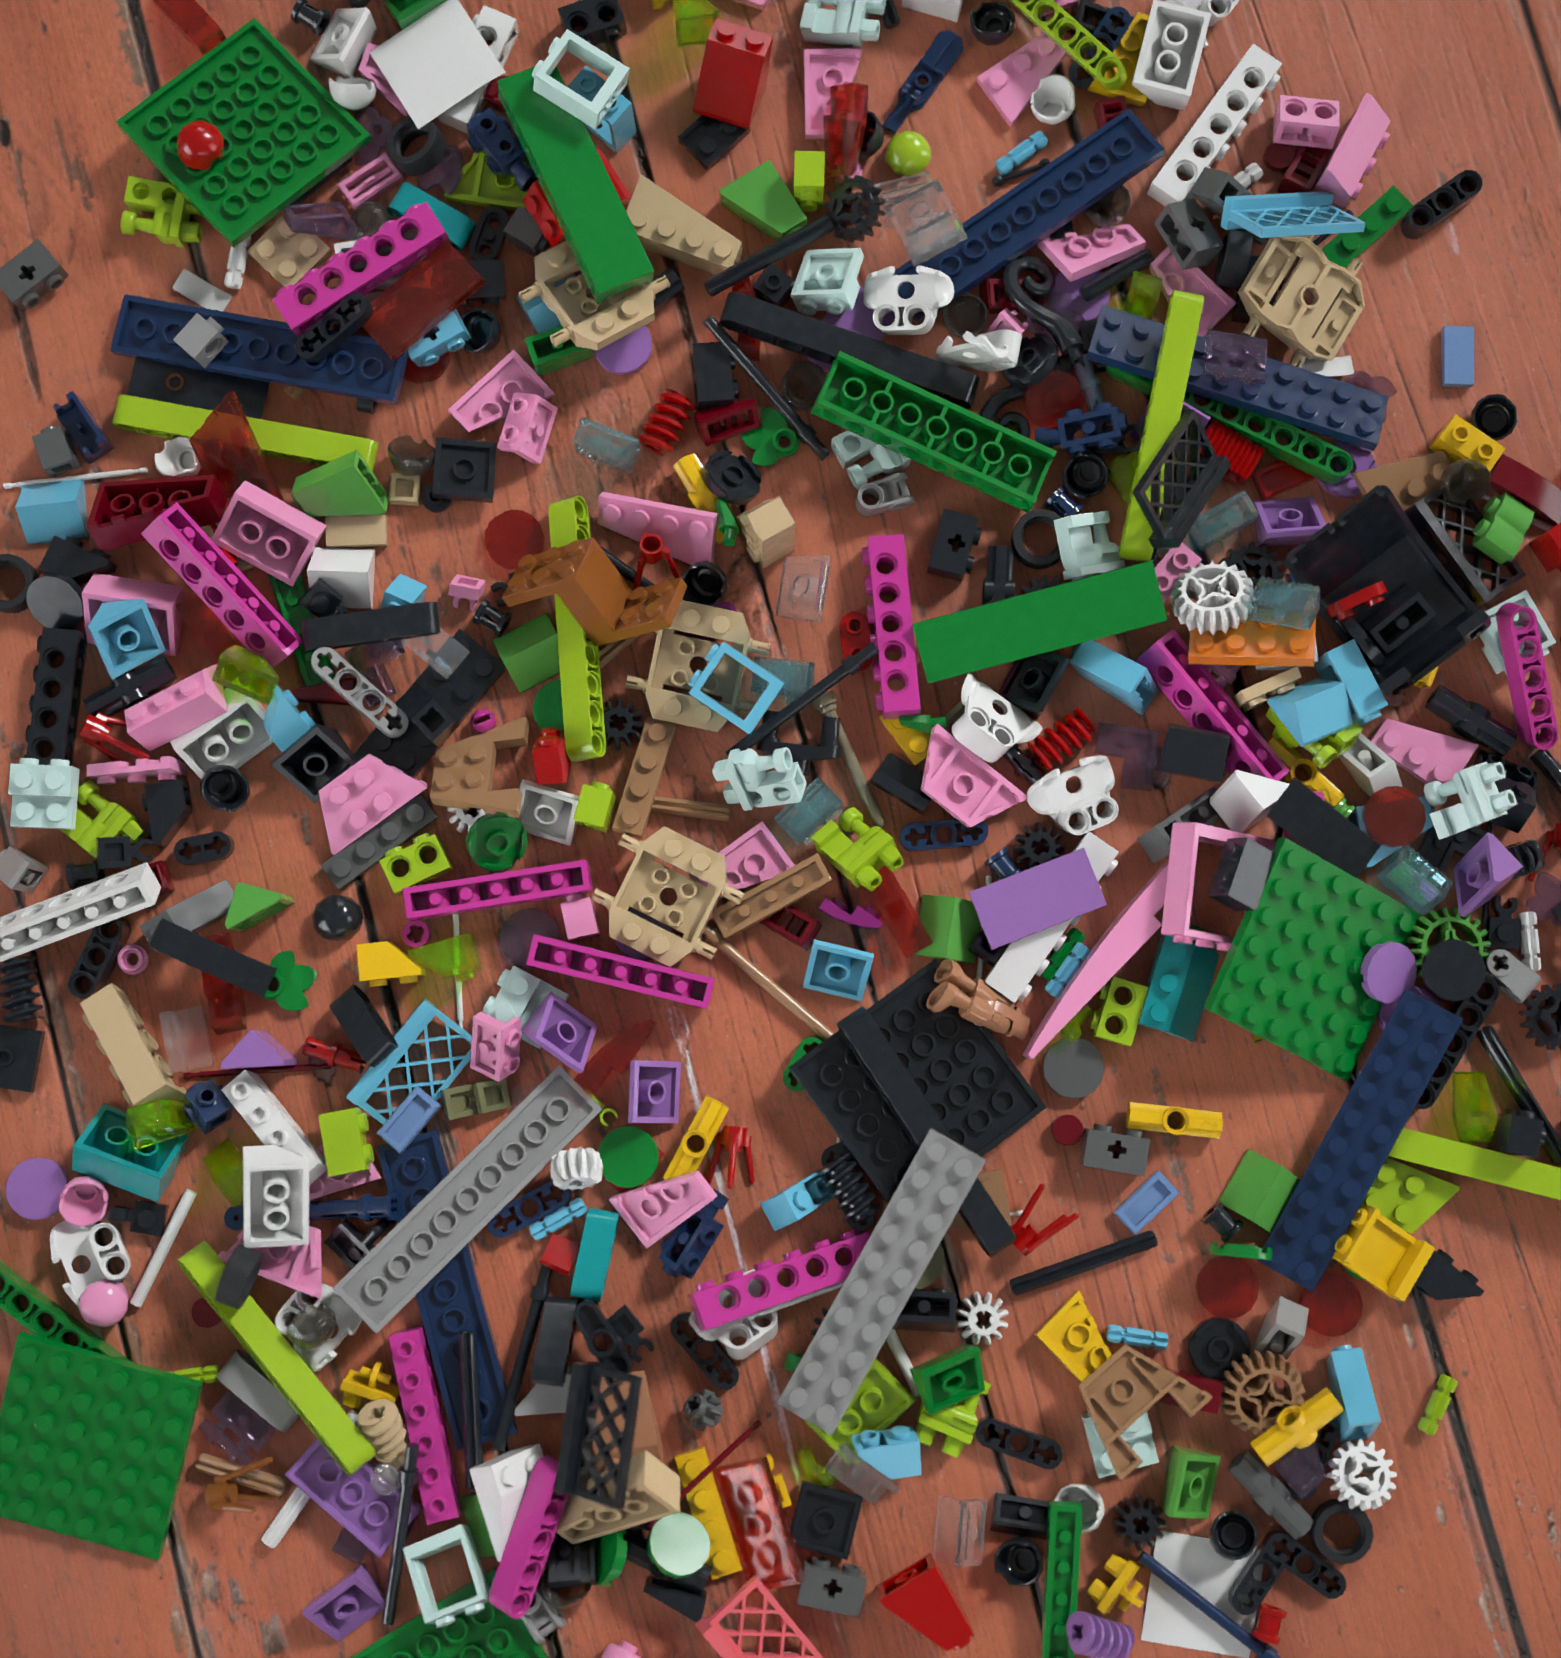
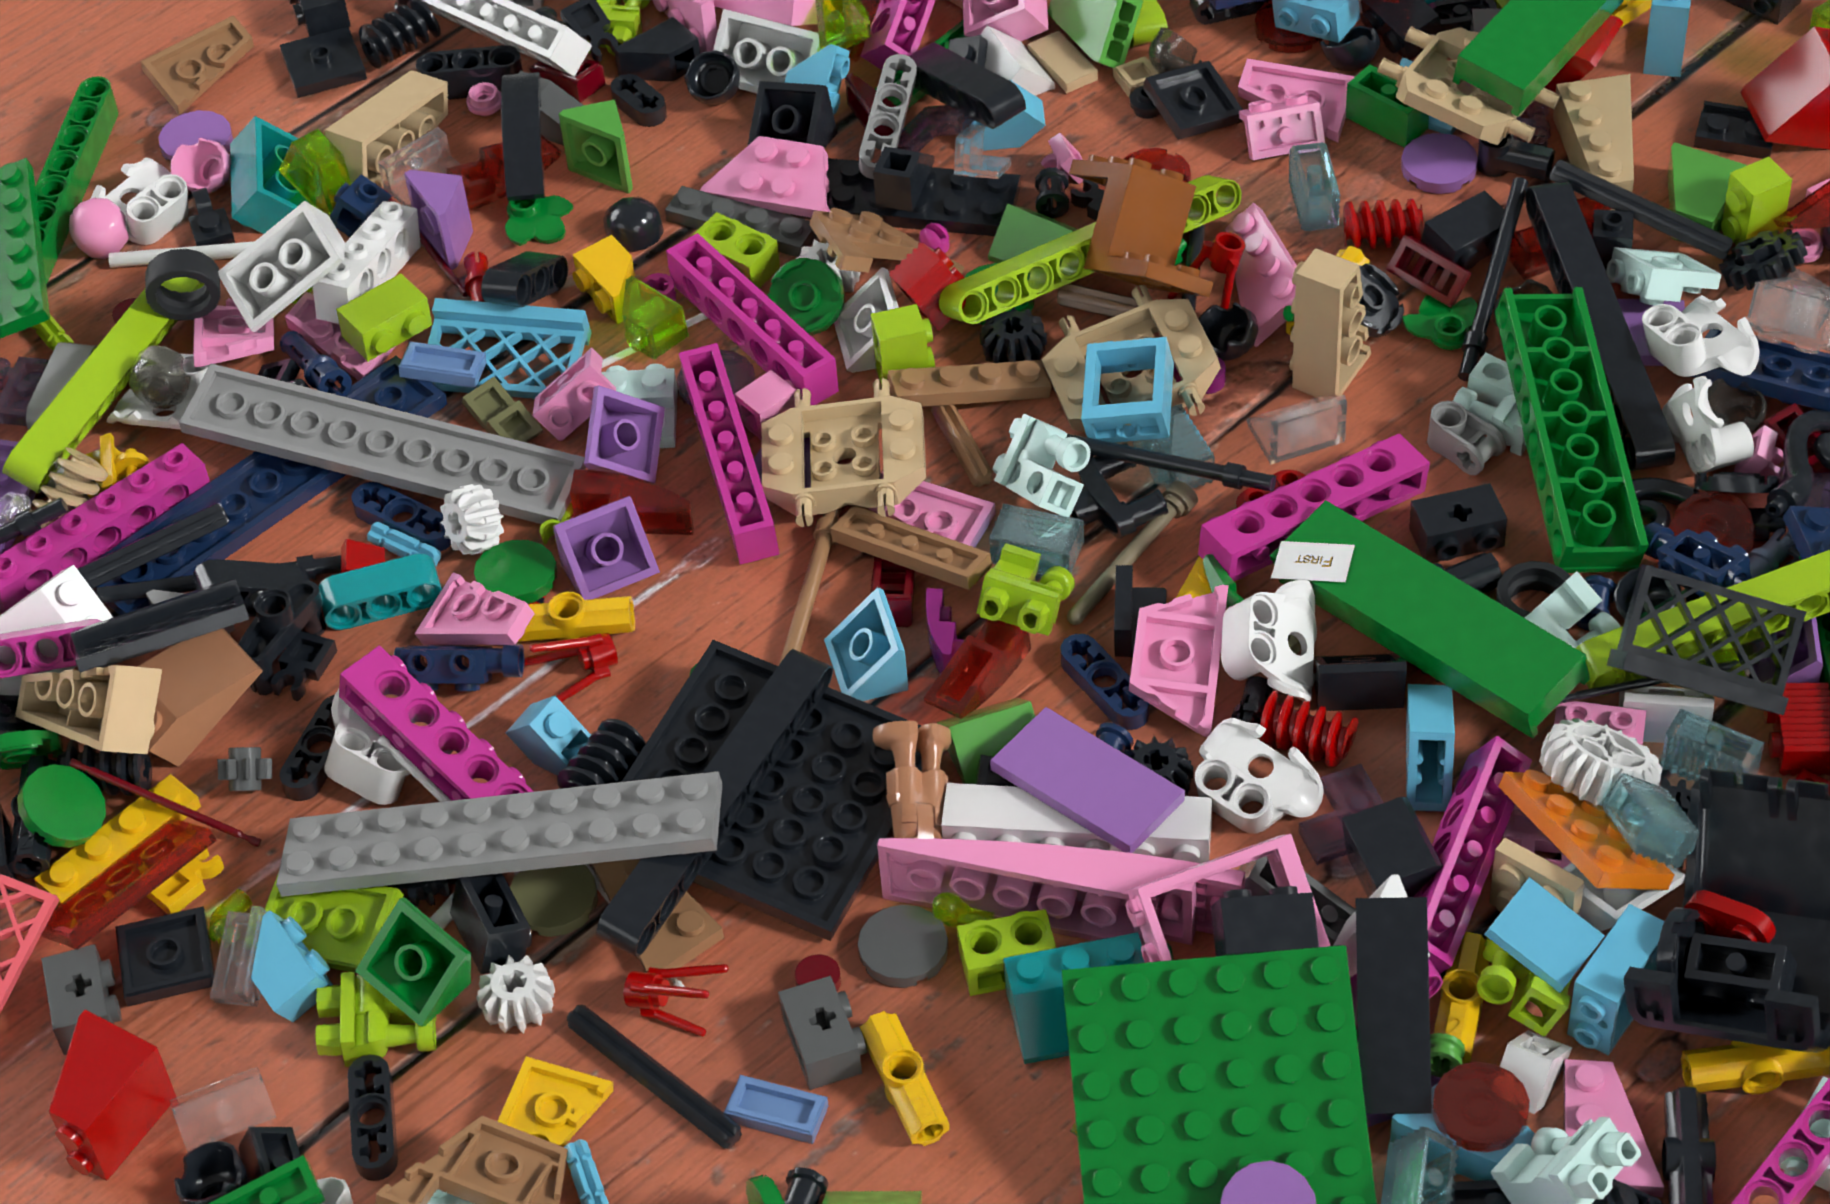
camera: 65 degrees right, 35 degrees down
(954, 662) = (1313, 561): none -> white sticker

